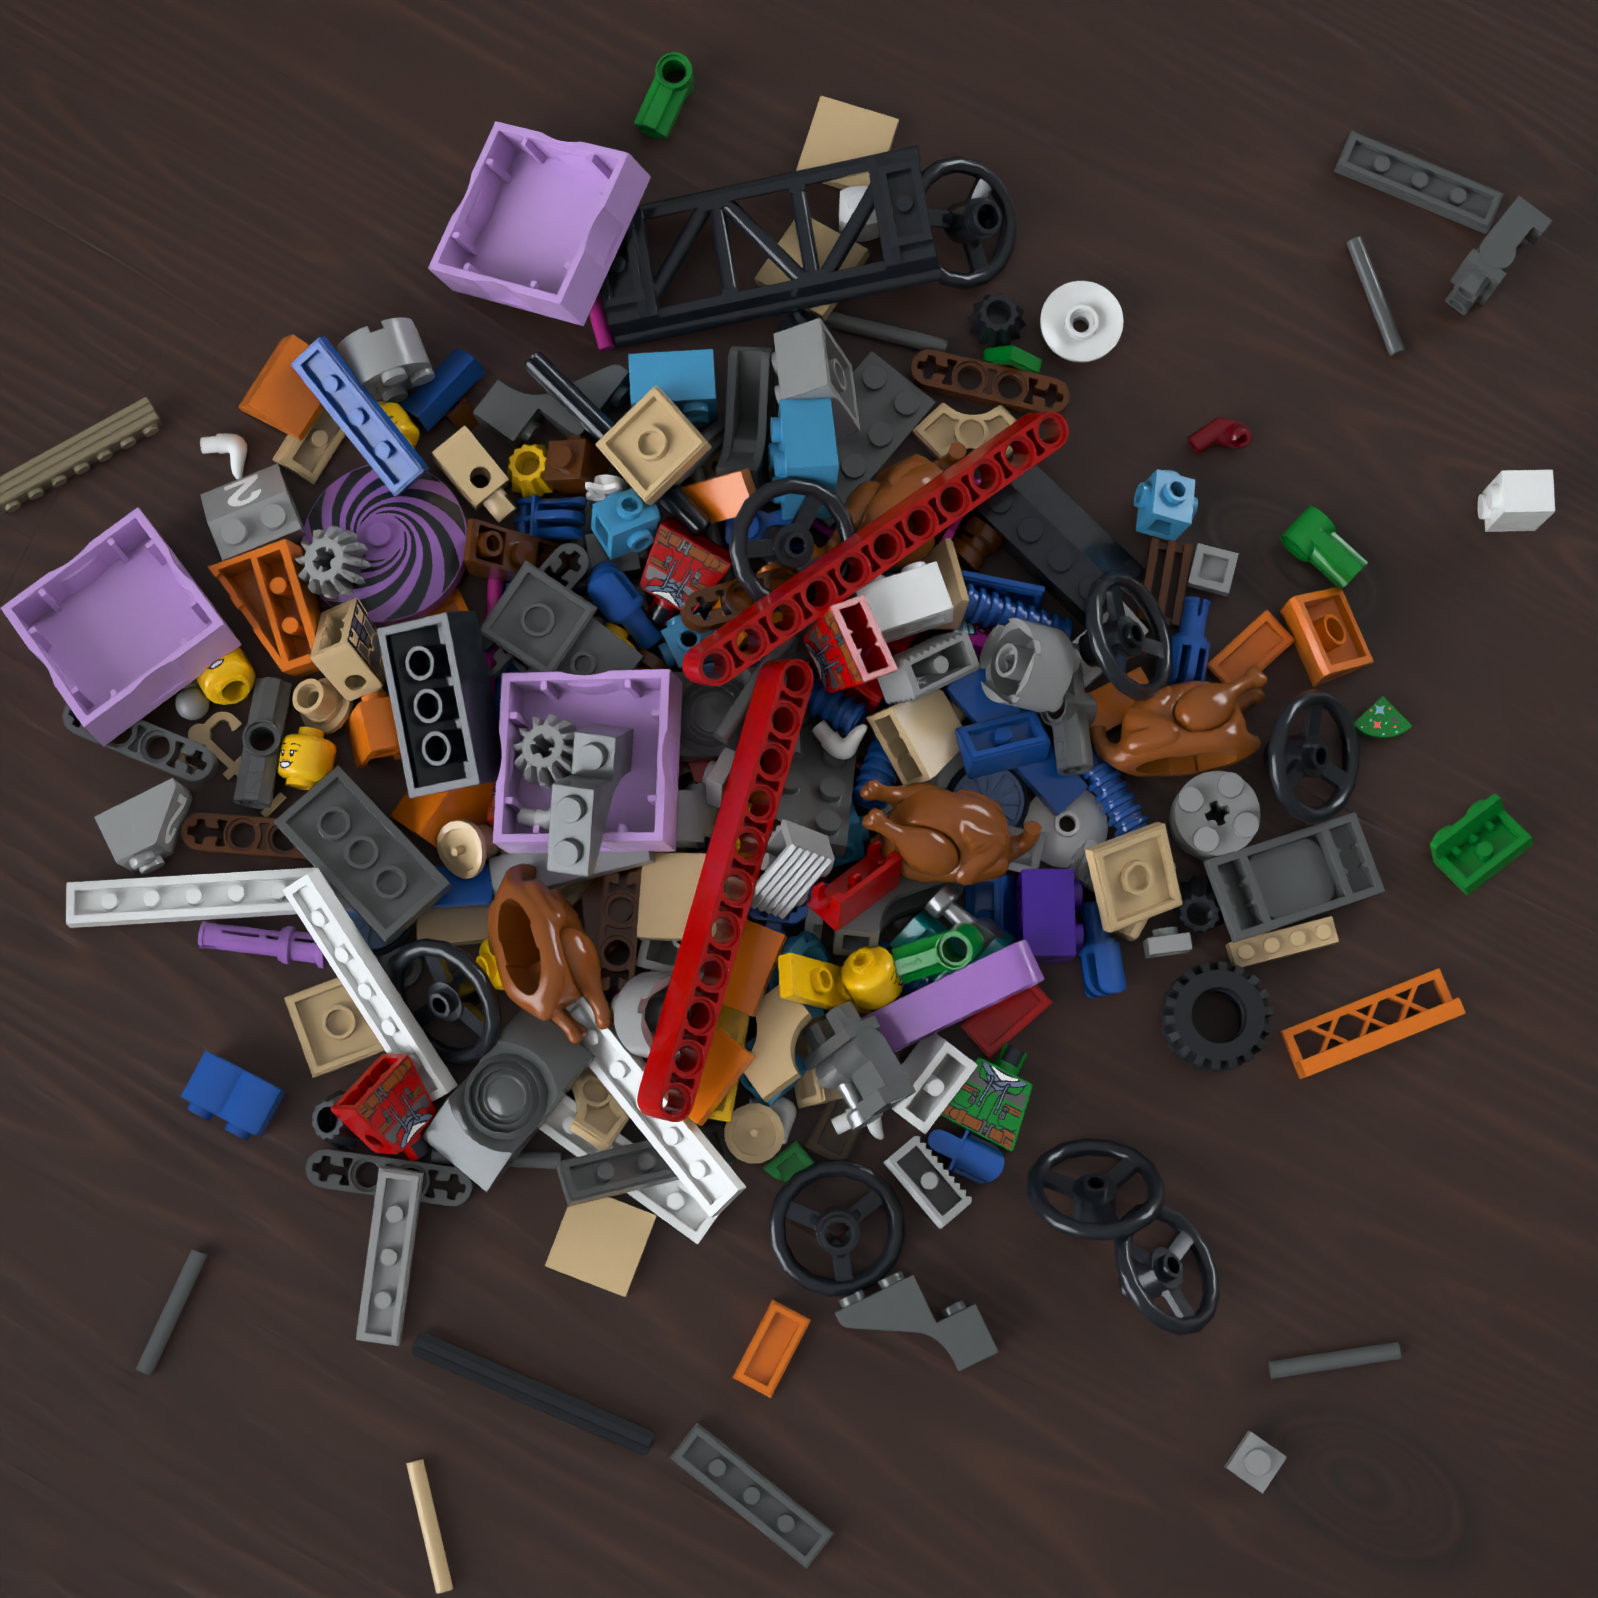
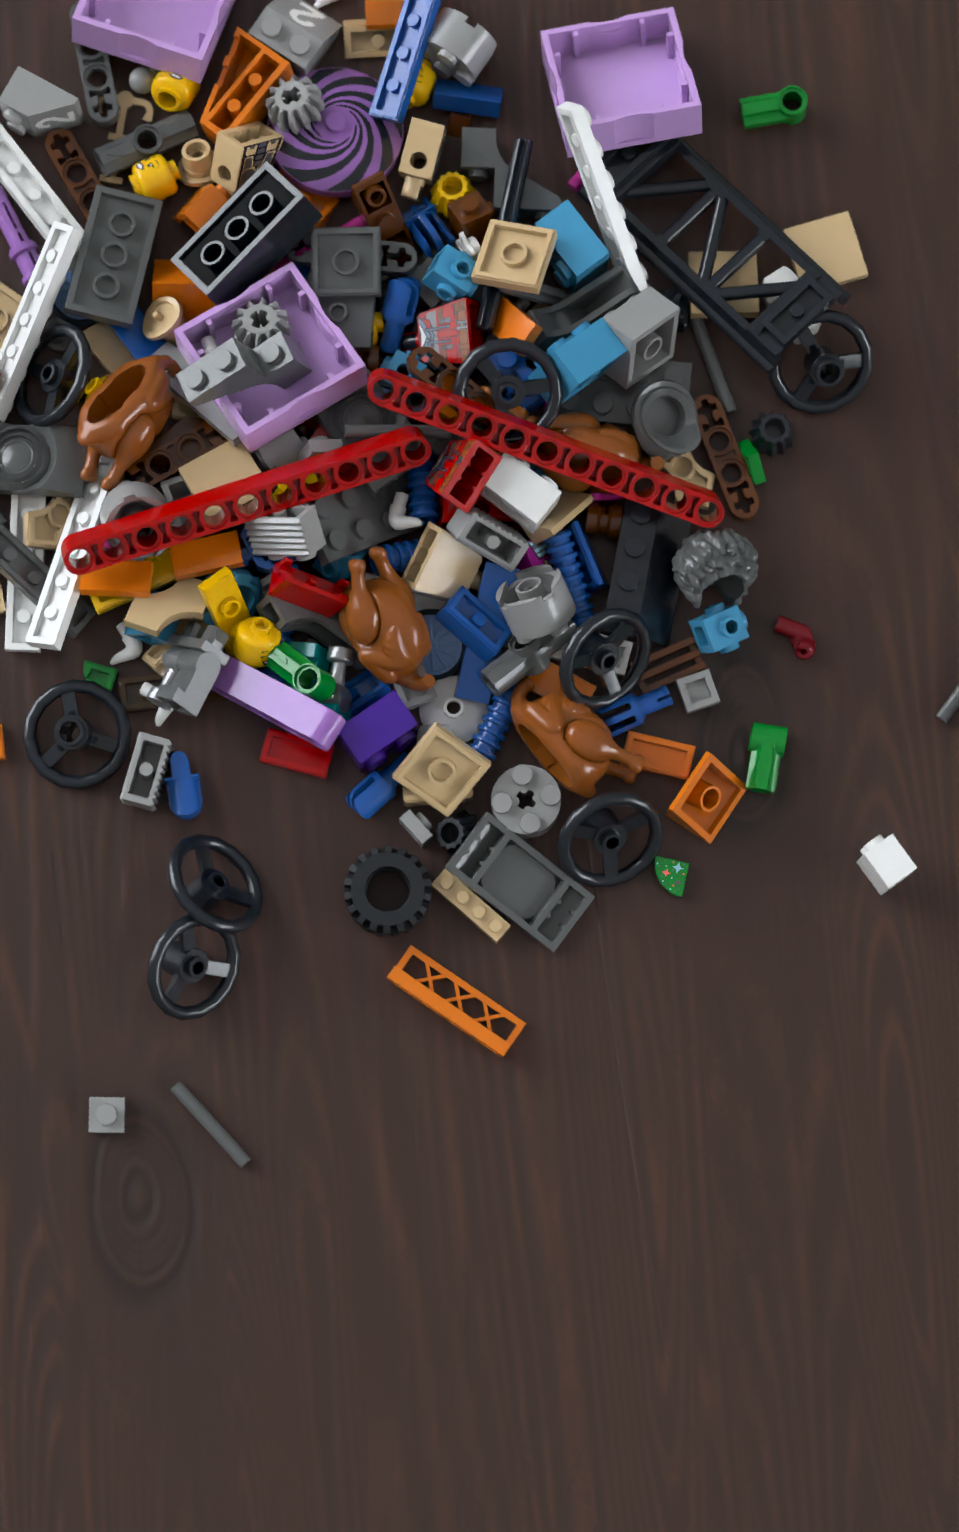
camera: 50 degrees right, 0 degrees up
(641, 313) = (599, 188): none -> white plate
(754, 1133) = (102, 636): tan piece -> none
(904, 1309) = (54, 813): dark grey arch -> none
(919, 412) = (665, 419): none -> dark grey piece
(937, 1075) = (215, 728): white brick -> none
(992, 1099) = (231, 778): torso -> none
(1087, 303) = (813, 473): white dish -> none
(1098, 463) = (715, 559): none -> dark grey hair
(1479, 844) = (629, 993): green bracket -> none

